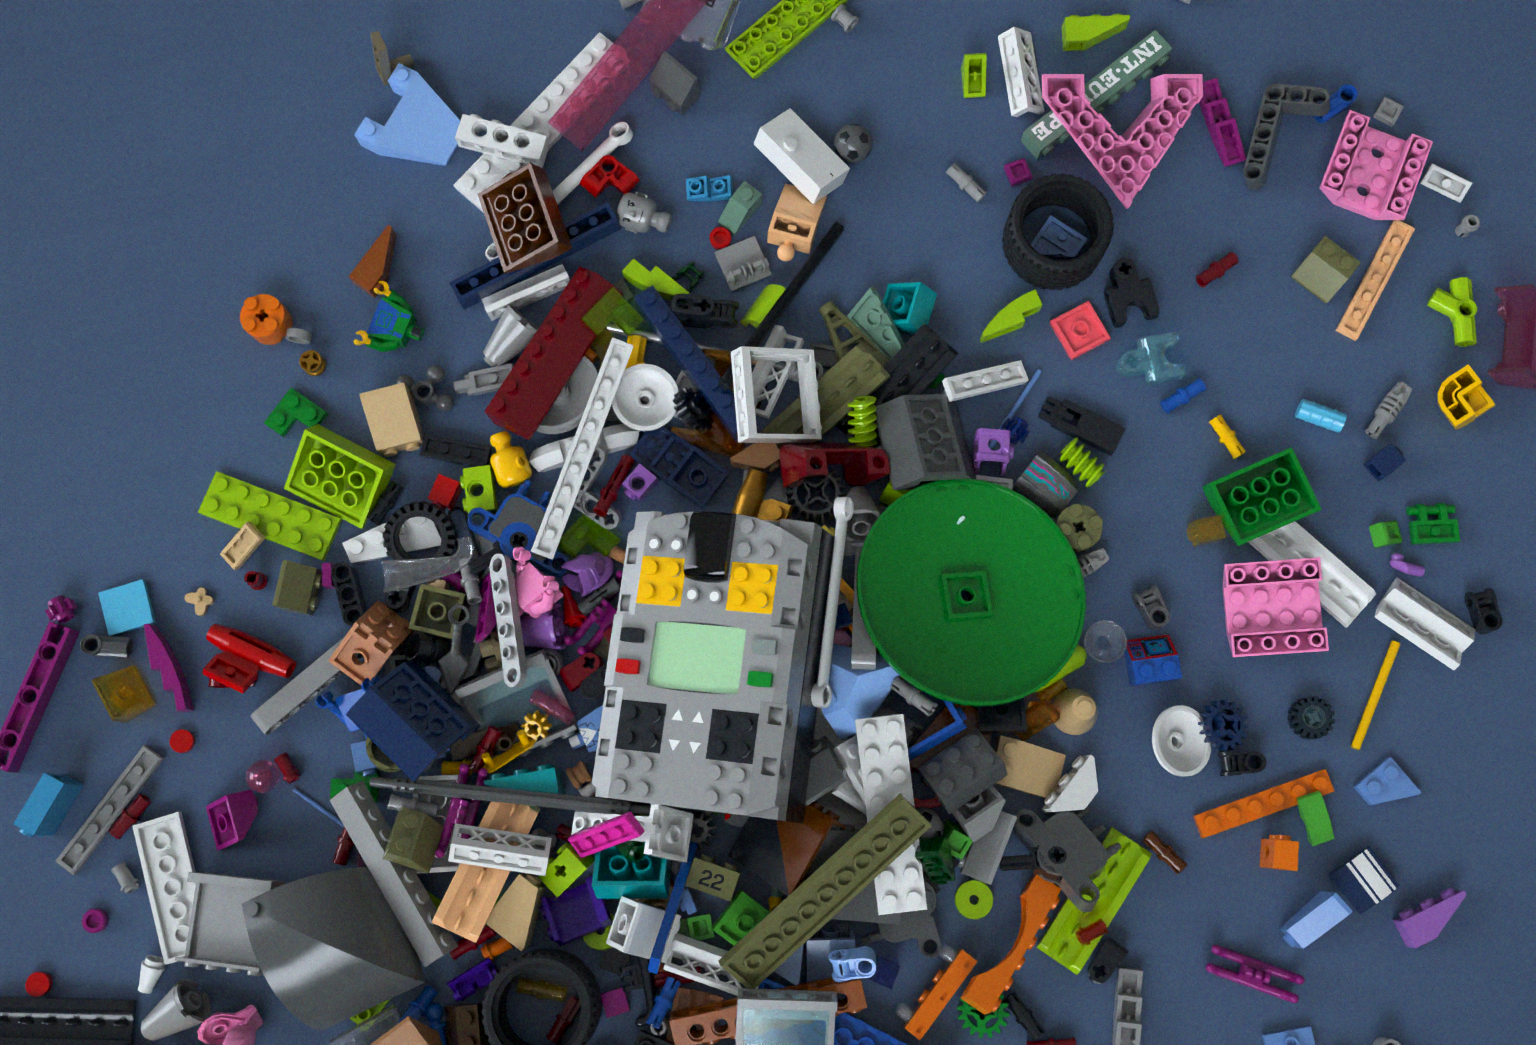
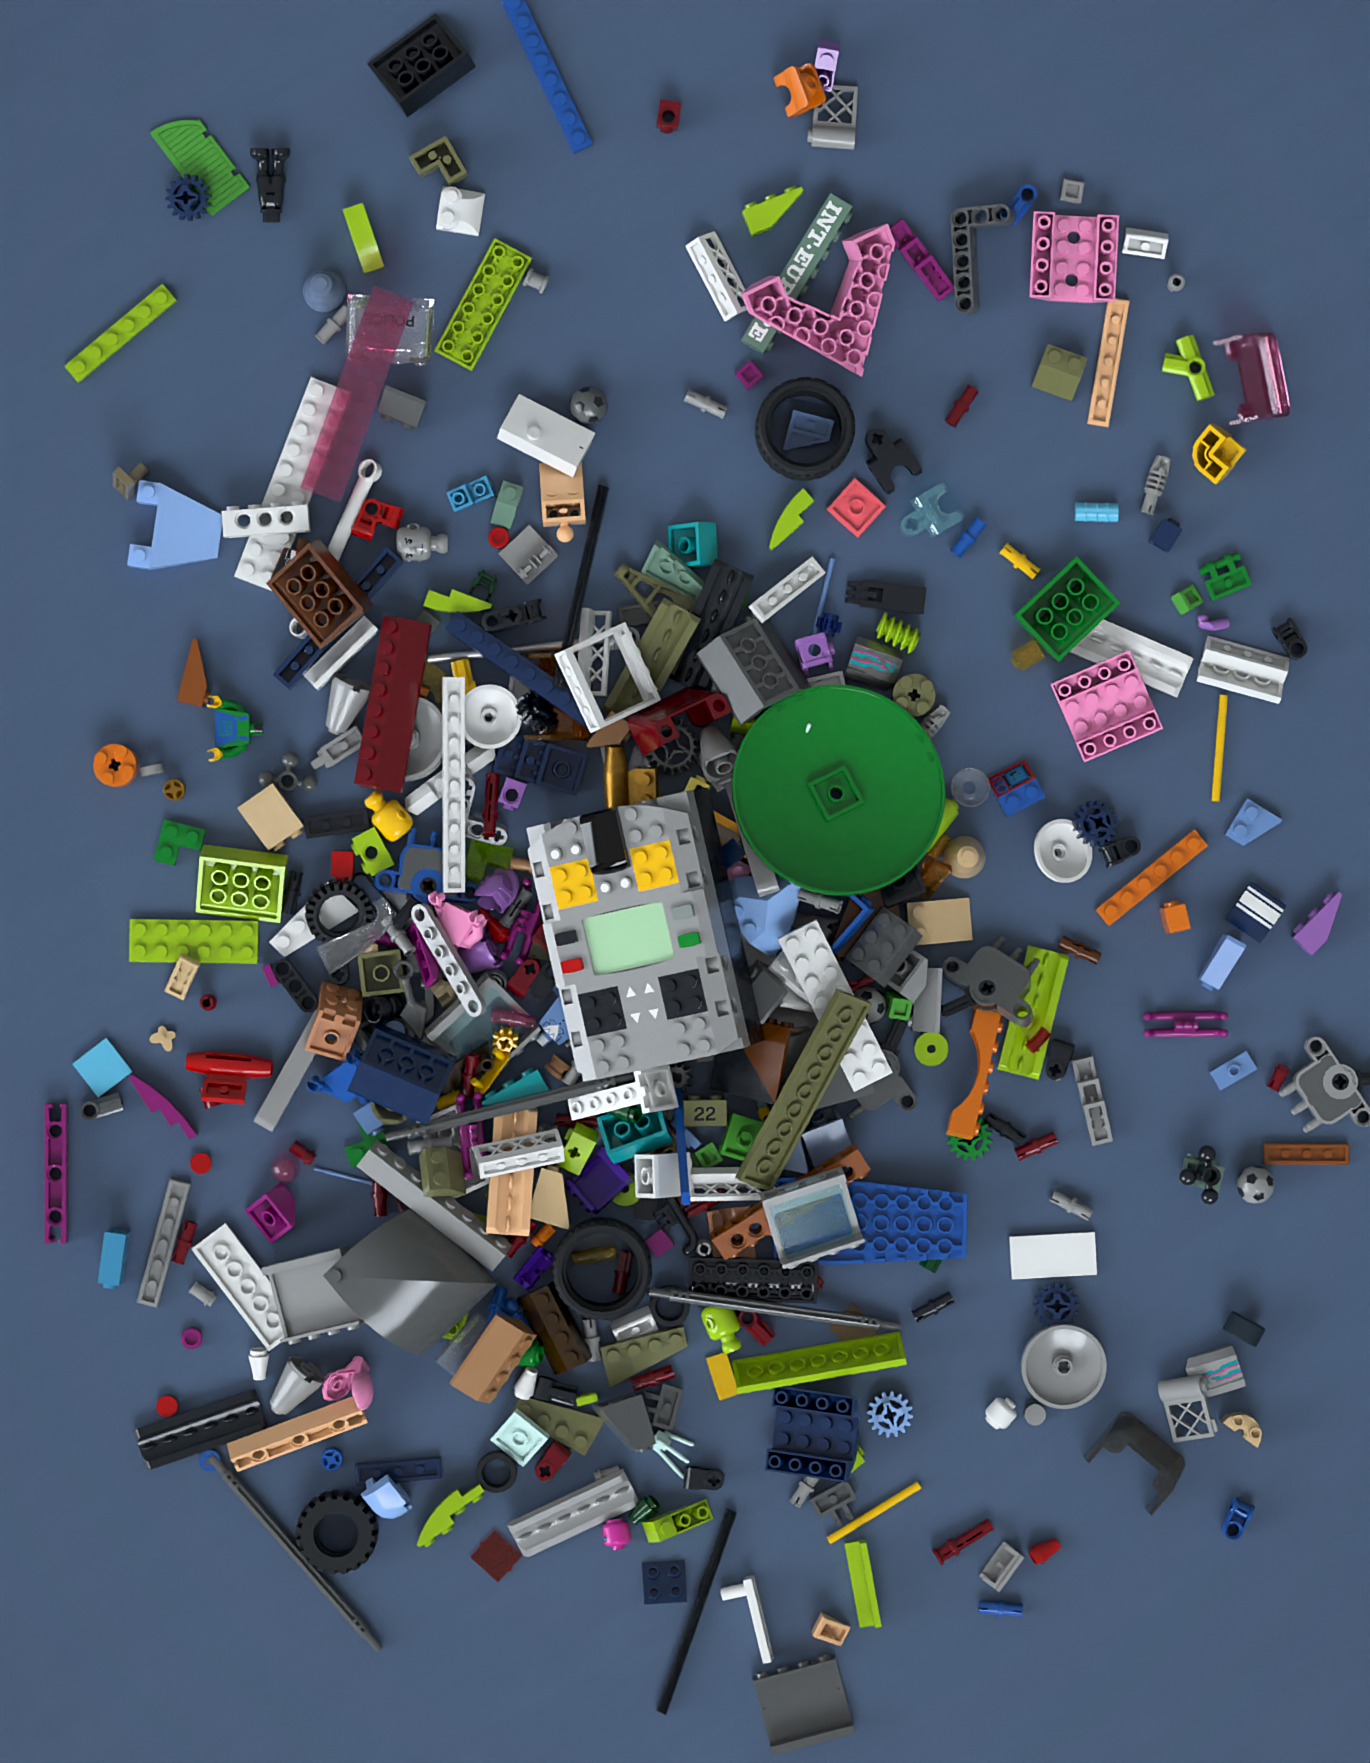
camera: 20 degrees left, 10 degrees up
(61, 609) = (47, 1090): magenta gear -> none
(124, 694) = (135, 1141): clear yellow slope -> none
(298, 588) = (250, 996): olive slope -> none
(606, 834) = (604, 1109): dark pink tile -> none
(612, 308) = (428, 644): clear neon green tile -> none
(663, 1002) = (700, 1227): blue pin -> none
(762, 305) = (562, 592): lime slope -> none
(821, 691) = (741, 925): white piece -> none
(851, 963) = (845, 1138): light blue piece -> none
(863, 421) = (691, 669): lime piece -> none
(885, 972) = (875, 1136): clear blue brick -> none
(935, 999) = (930, 1130): orange piece -> none
(936, 859) = (886, 1028): dark green slope -> none
(974, 75) = (677, 297): lime slope -> none
(1075, 788) = (985, 925): white slope -> none
(1151, 605) = (1000, 740): flat silver piece -> none
(1316, 818) = (1198, 875): bright green slope -> none
(1318, 714) = (1176, 789): black wheel -> none

